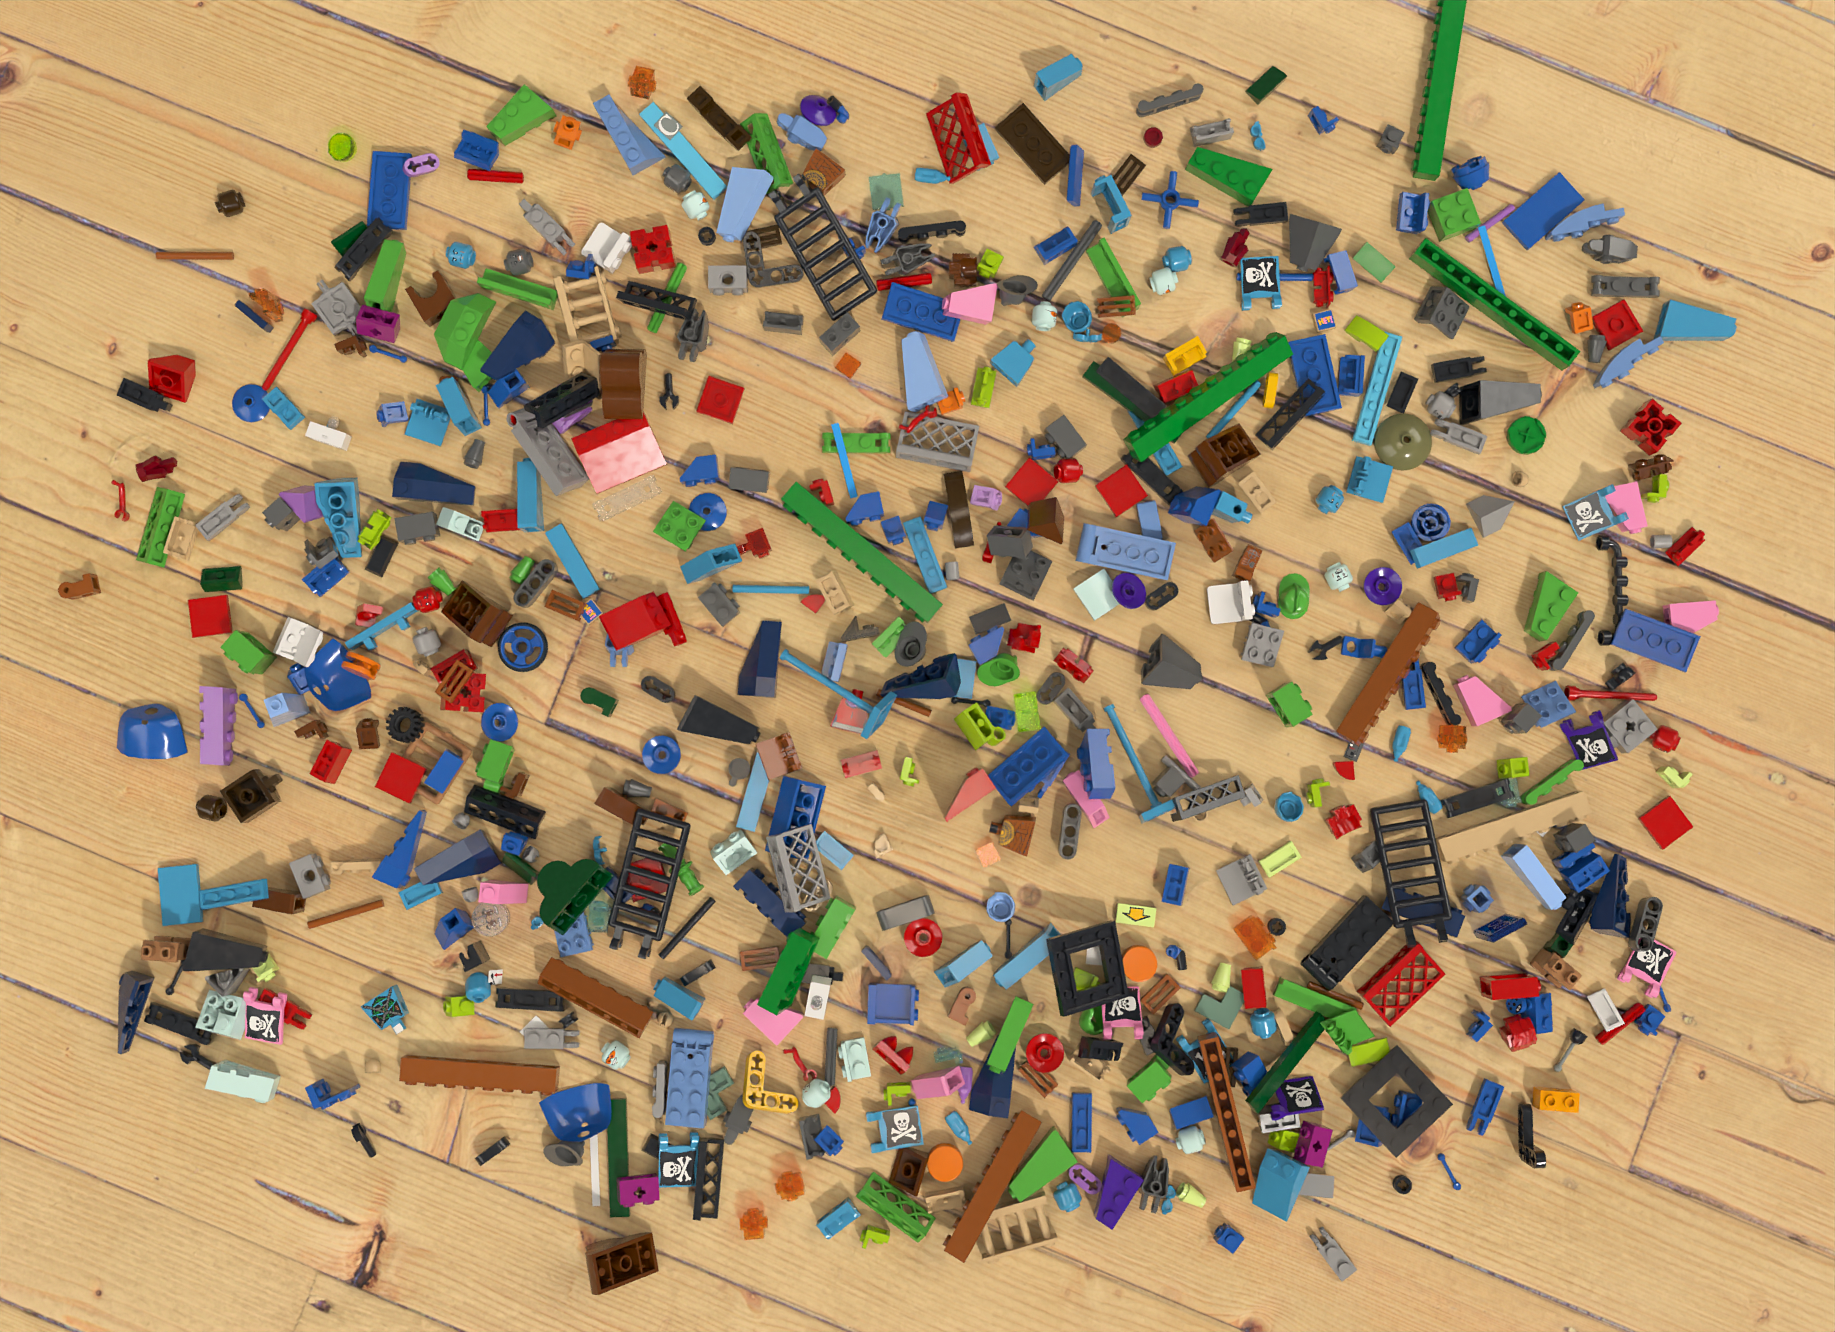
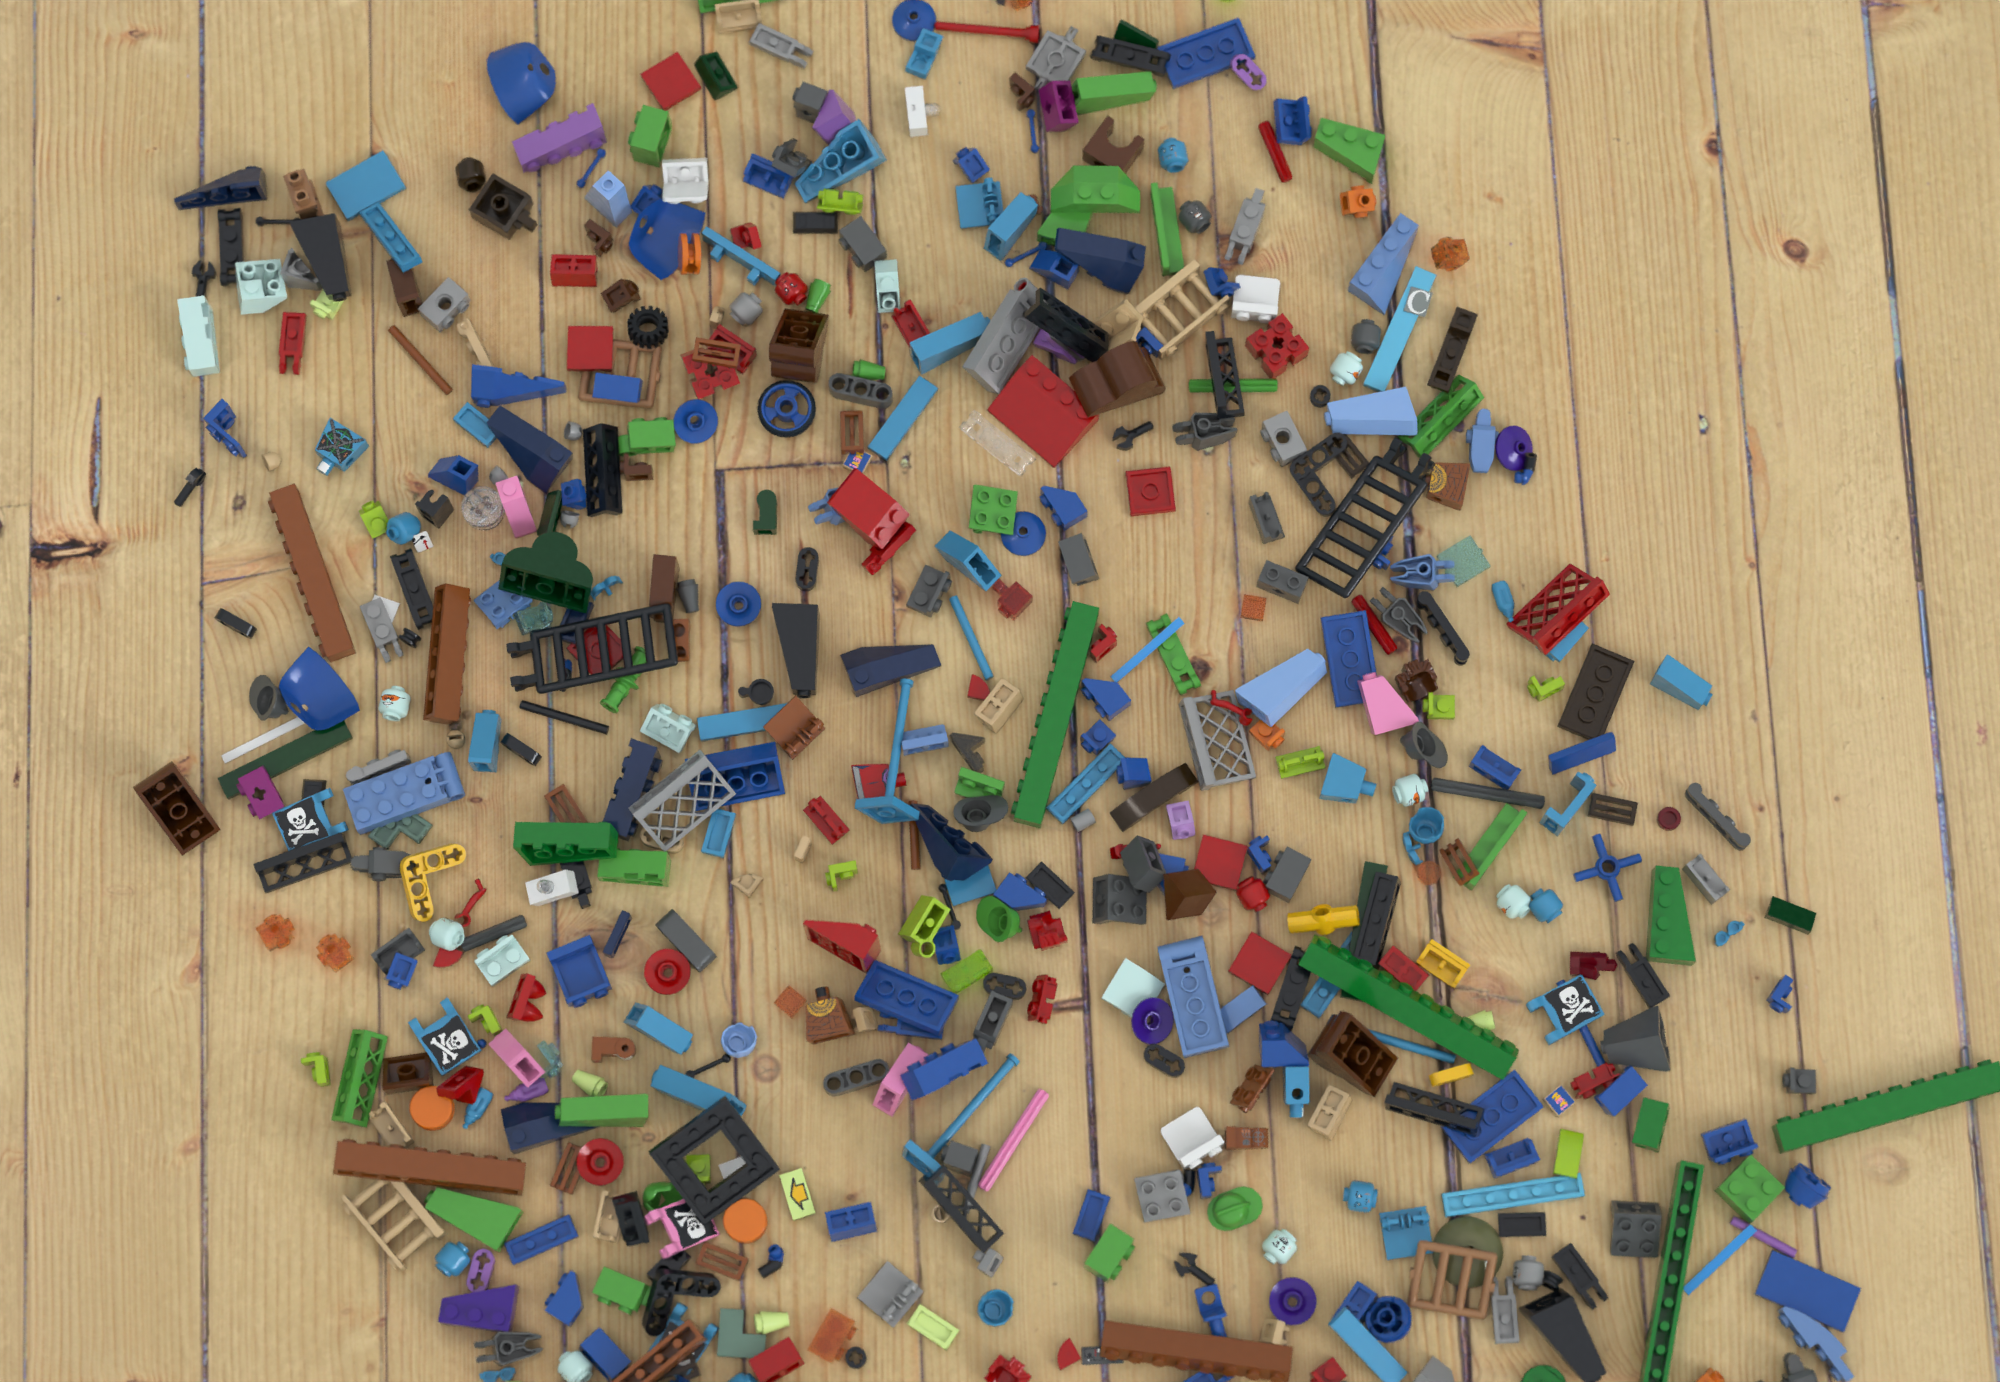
camera: 70 degrees right, 10 degrees down
(263, 1019) = (274, 327): flag -> none
(426, 484) = (913, 233): dark blue wedge -> none
(475, 454) = (968, 266): dark grey cone -> none
(771, 1025) = (500, 855): bright pink slope -> none
(838, 1218) = (320, 1021): dark azure hinge -> none
(938, 1132) = (462, 1085): none -> red slope
(1014, 175) = (1548, 688): none -> lime bracket
(1112, 427) = (1323, 919): none -> yellow piece
(1170, 666) = (1090, 1104): dark grey slope -> none
(1250, 704) = (1091, 1215): none -> blue tile
(1313, 796) = (1020, 1330): lime bracket -> none
(1441, 468) = (1435, 1304): none -> medium nougat bar

